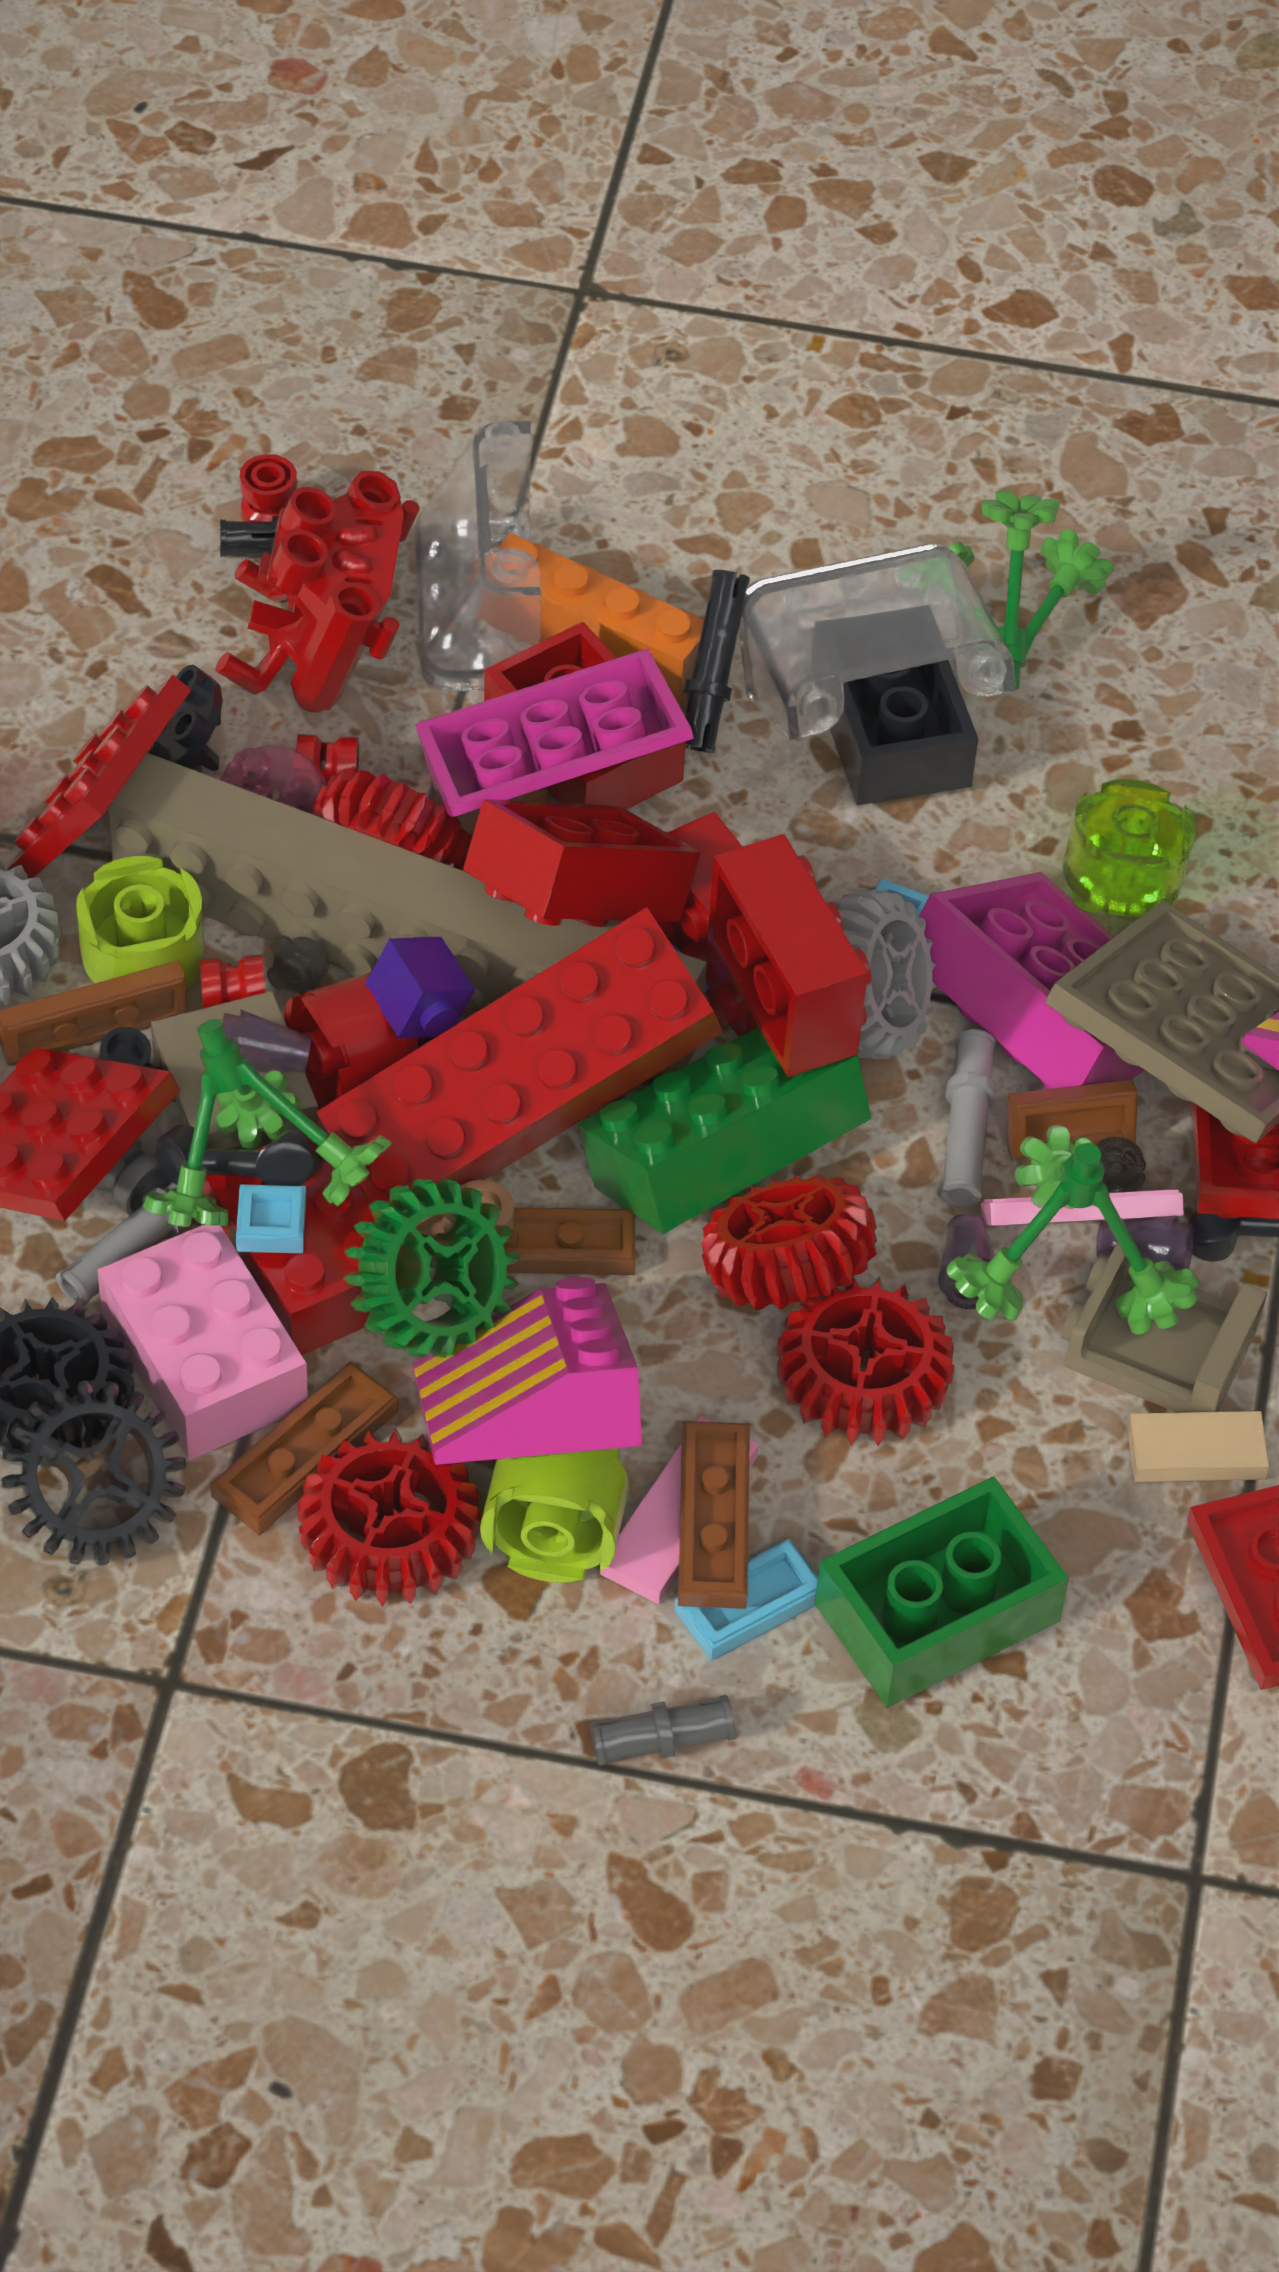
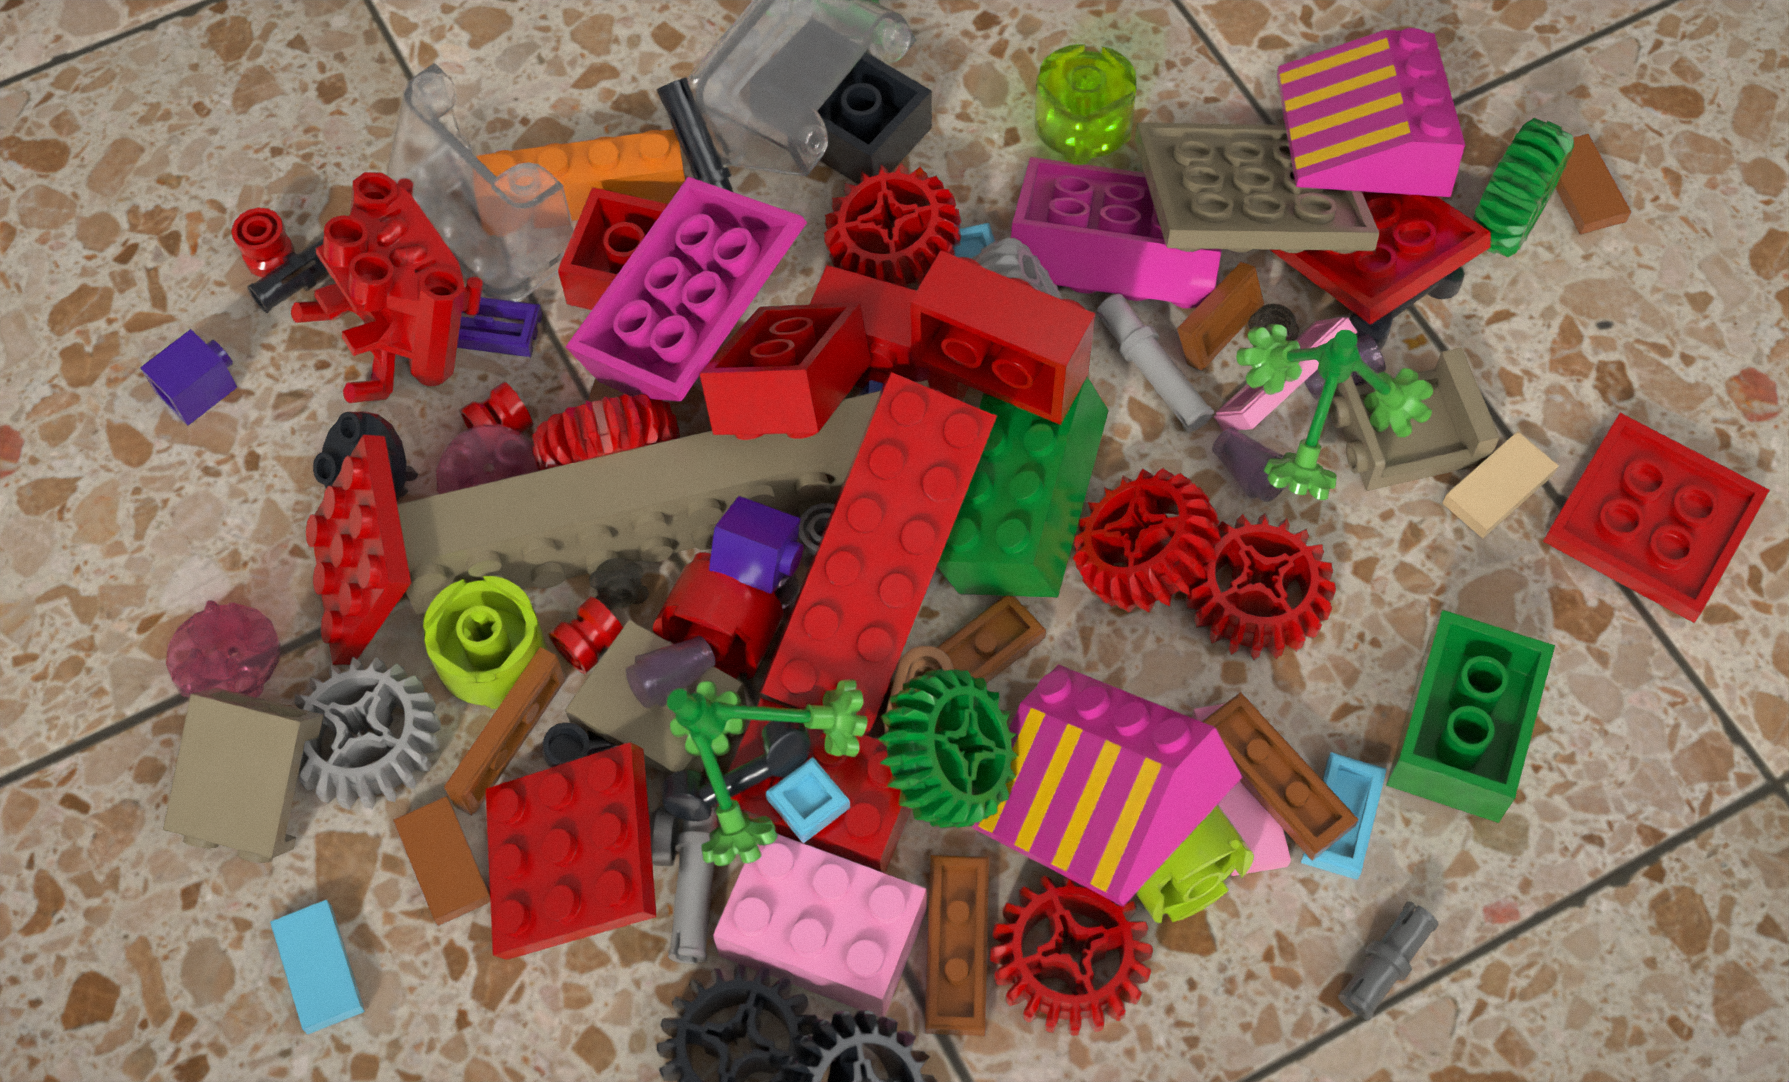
camera: 35 degrees left, 10 degrees up
(106, 562) = (190, 376): none -> dark purple brick
(389, 693) = (500, 337): none -> dark purple tile
(846, 829) = (862, 225): none -> red gear

